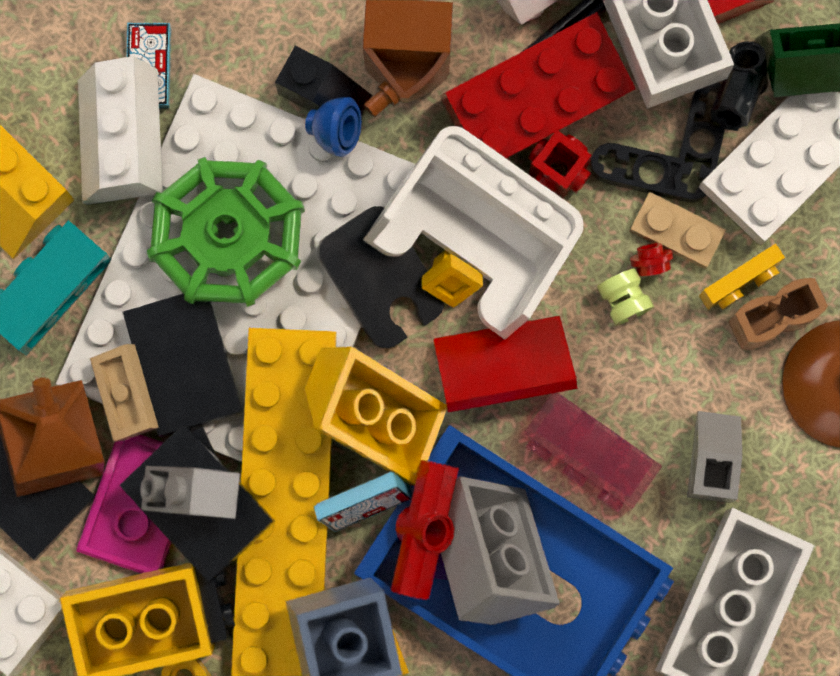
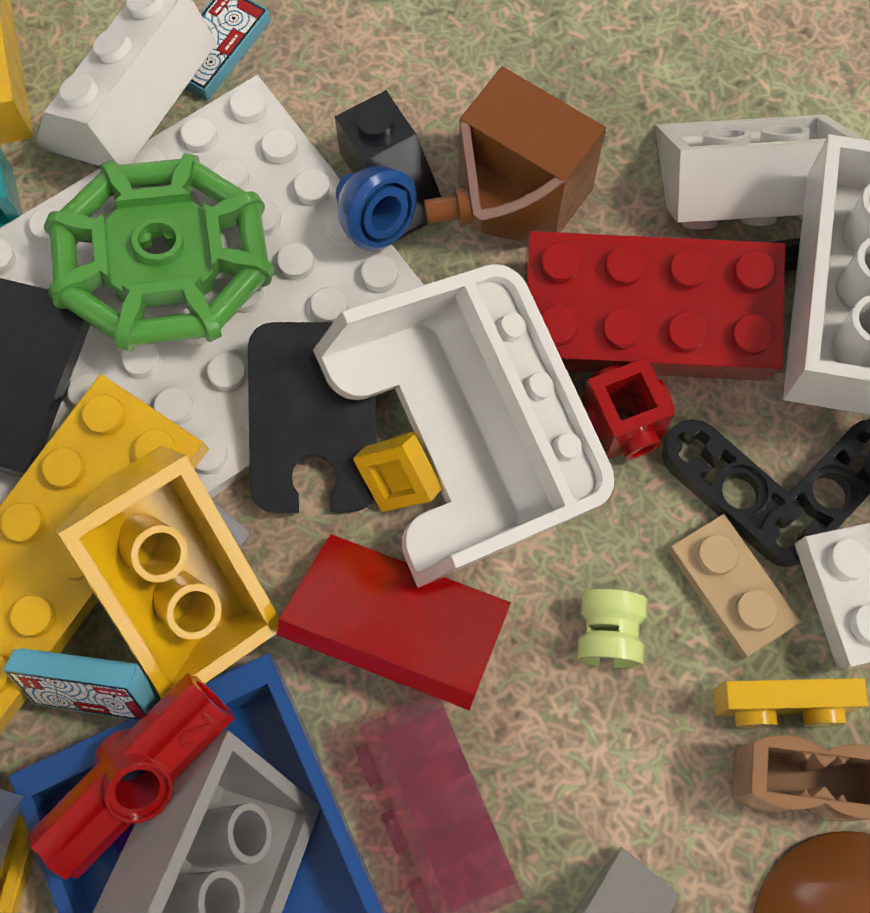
camera: 30 degrees right, 10 degrees down
(651, 259) = (676, 602): red plate -> none

